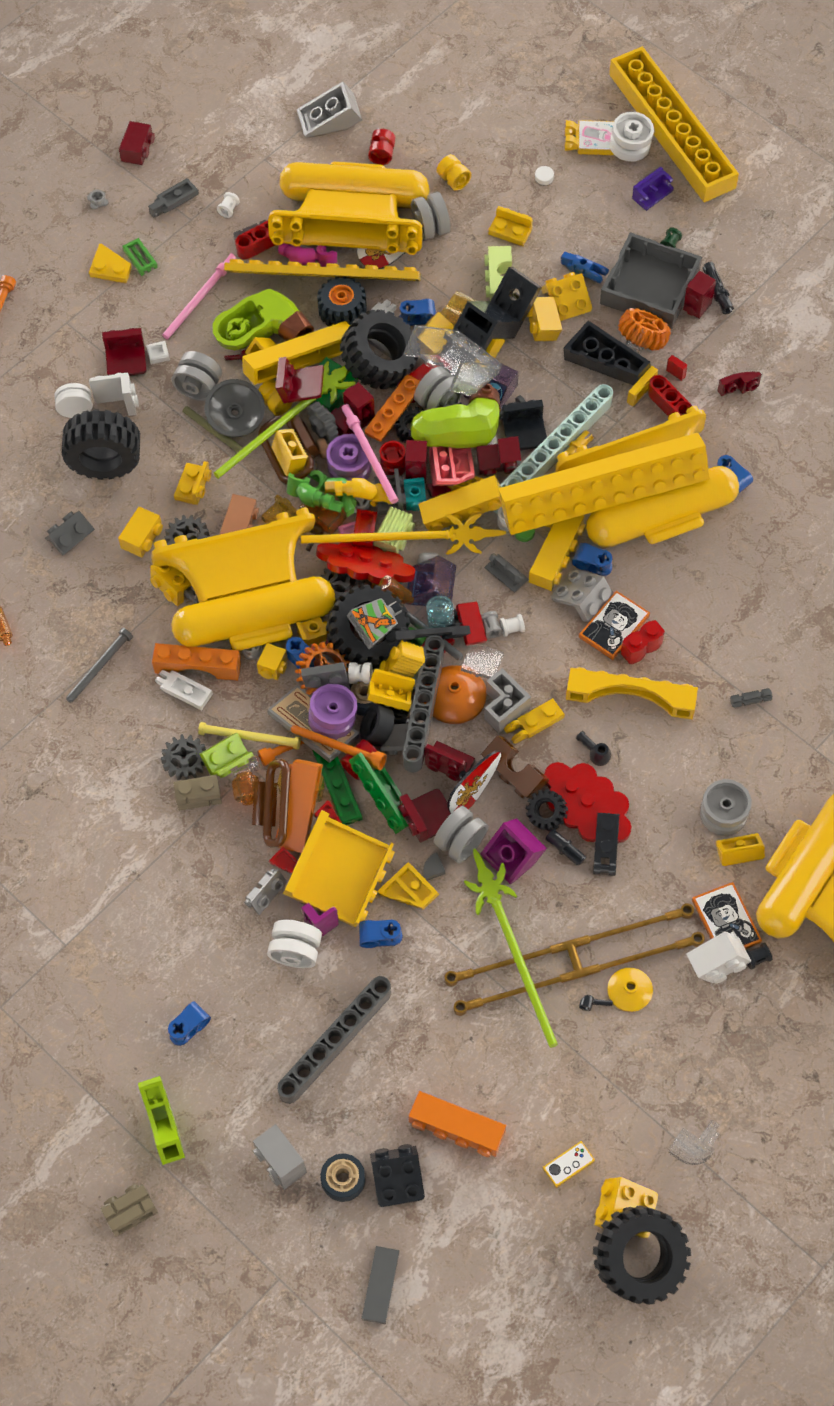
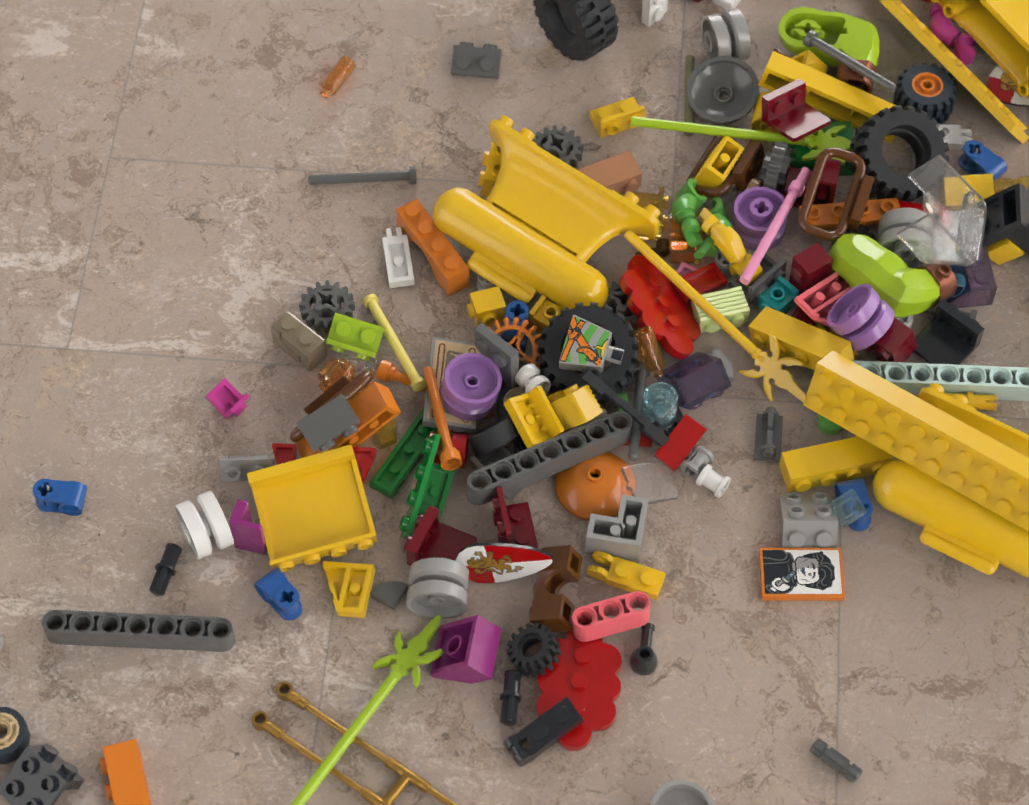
camera: 50 degrees right, 5 degrees down
(140, 532) = (526, 109): yellow brick -> none
(203, 867) = (227, 399): none -> dark pink bracket
(287, 322) = (812, 39): none -> dark grey bar
(299, 811) = (329, 423): none -> dark grey brick
(300, 993) = (165, 569): none -> black axle
(392, 457) = (793, 244): red wheel -> none
(396, 395) = (855, 201): none -> reddish brown bar
(482, 456) = (860, 316): none -> medium lavender wheel
(562, 739) = (618, 606): none -> coral beam
(599, 564) = (848, 507): none -> clear light blue tile
(644, 641) = (803, 611): red brick -> none
(673, 698) = (707, 595): yellow arch -> none

